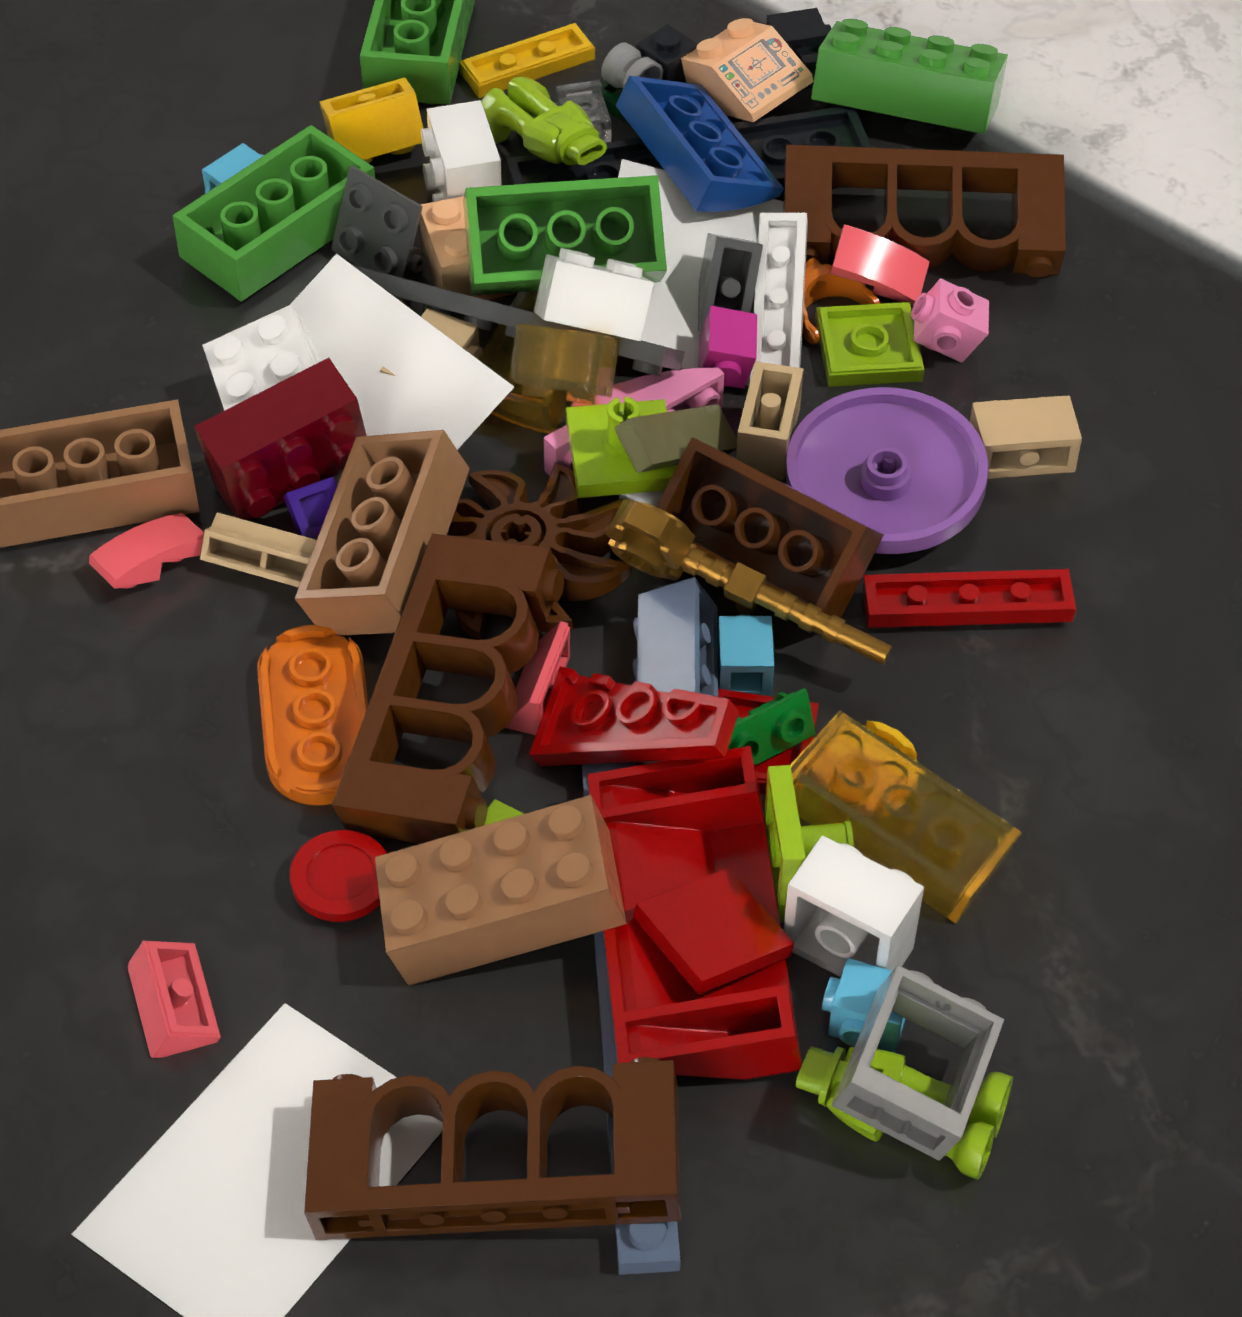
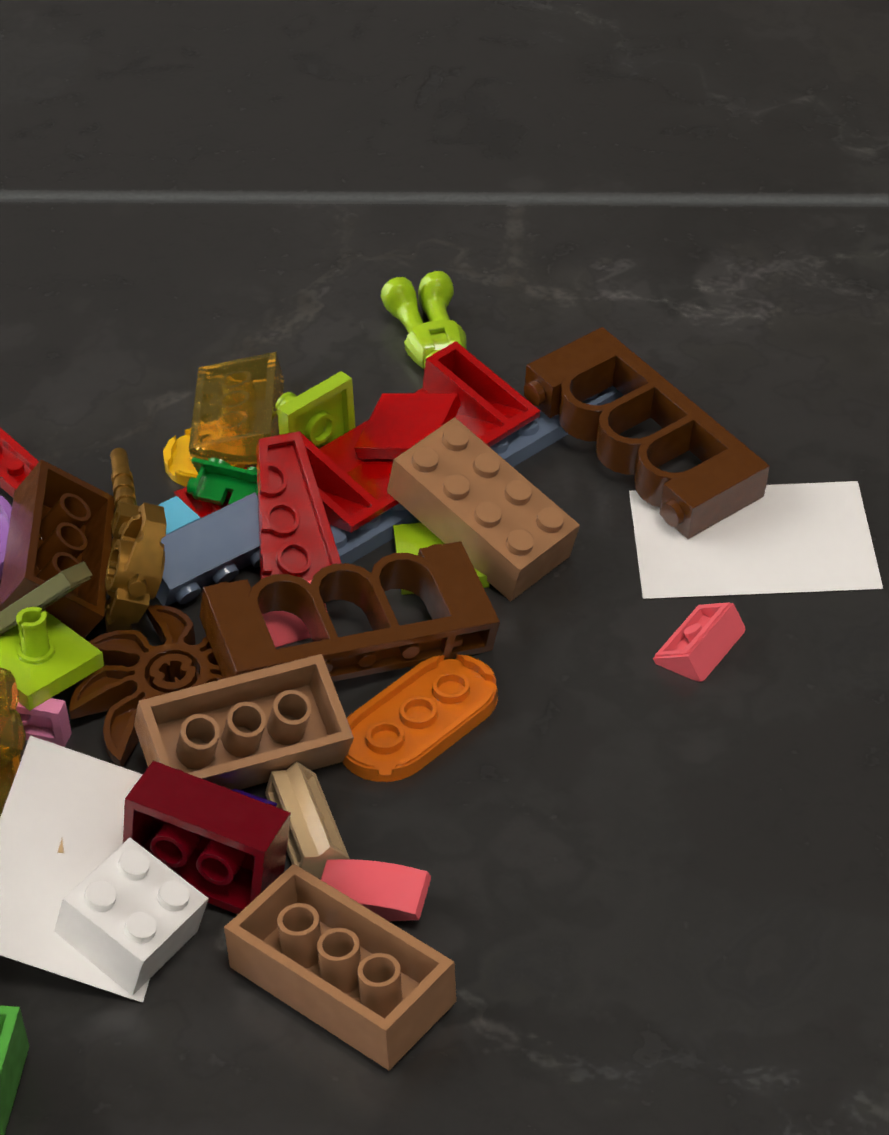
camera: 125 degrees left, 10 degrees down
(337, 875) = (534, 617): red piece -> none
(850, 1001) = (386, 365): medium azure brick -> none
(851, 909) = (340, 348): white brick -> none
(898, 1108) = (419, 300): light grey window -> none

